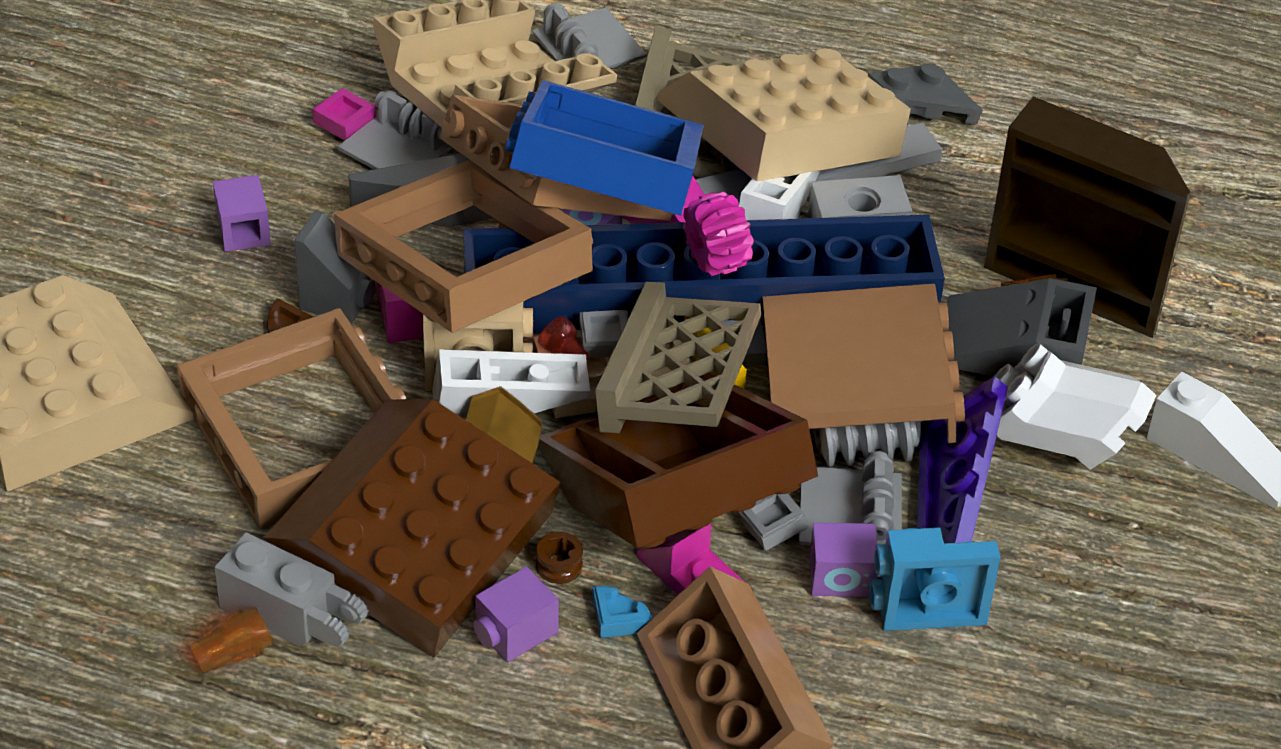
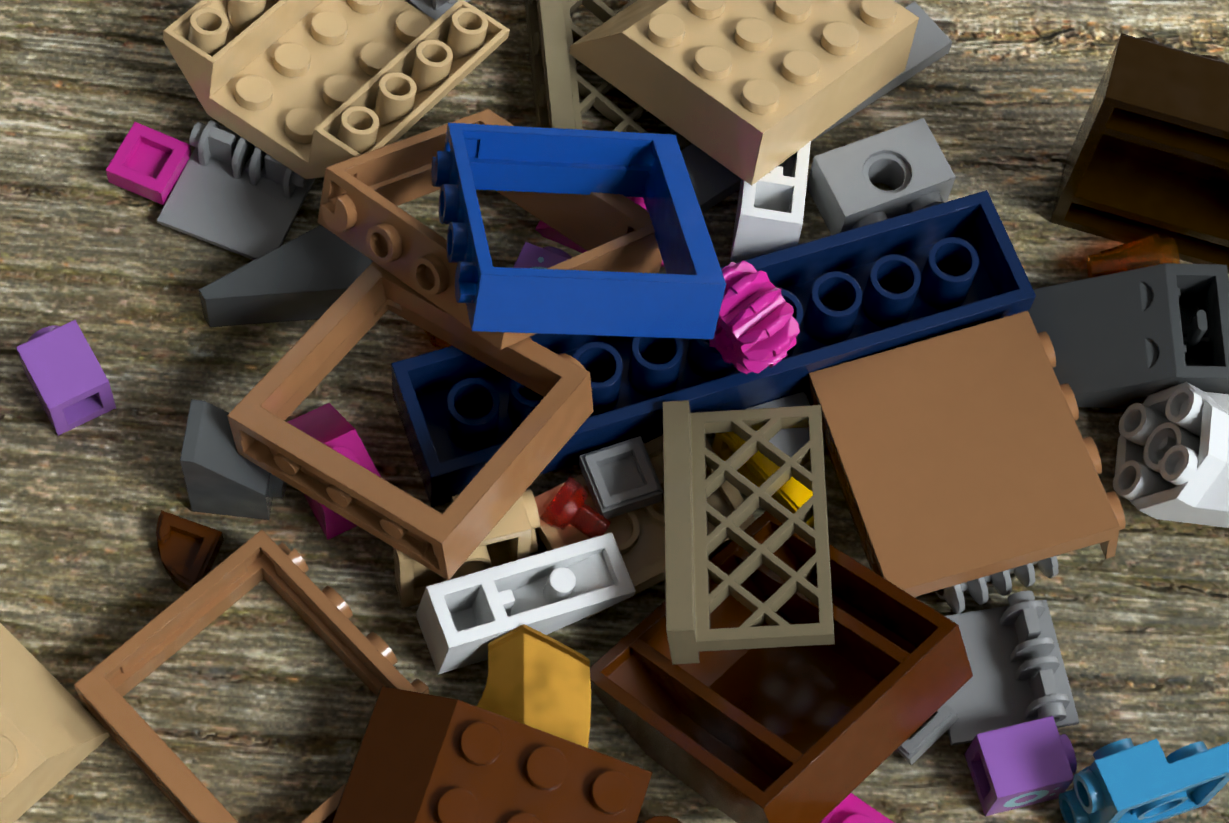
camera: 20 degrees left, 20 degrees up
(956, 473) = (1125, 613): dark purple wing -> none

